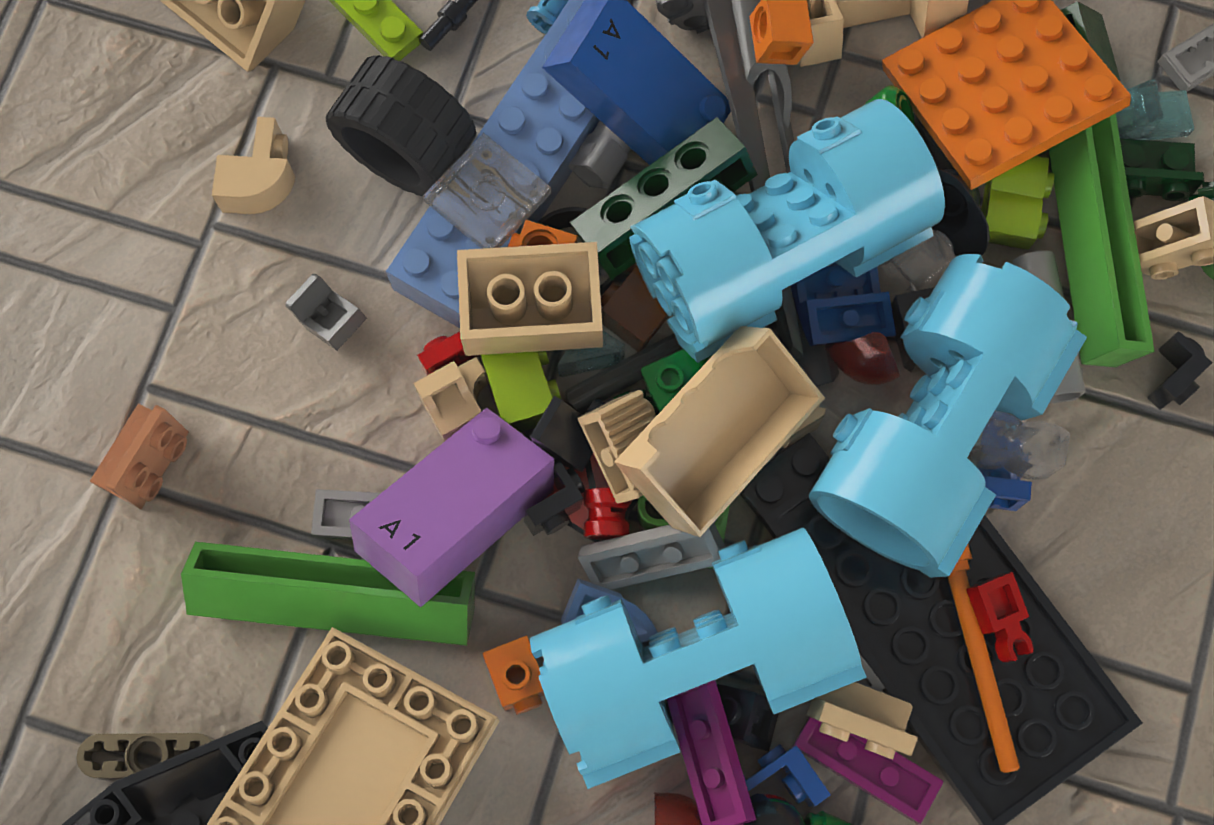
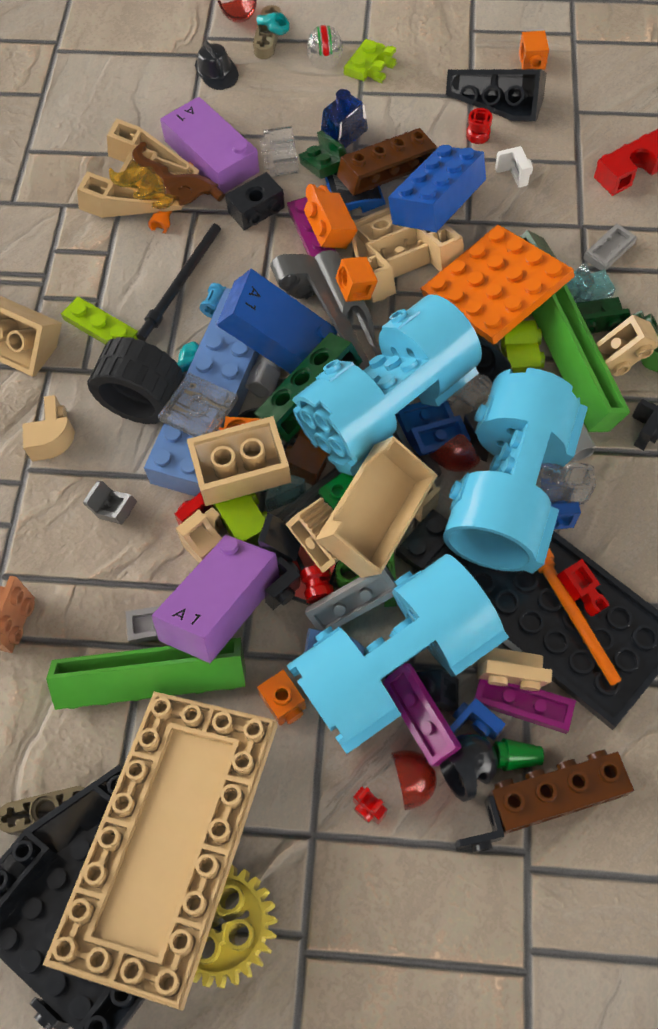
camera: 10 degrees left, 10 degrees down
(489, 94) = (186, 355): none -> teal animal

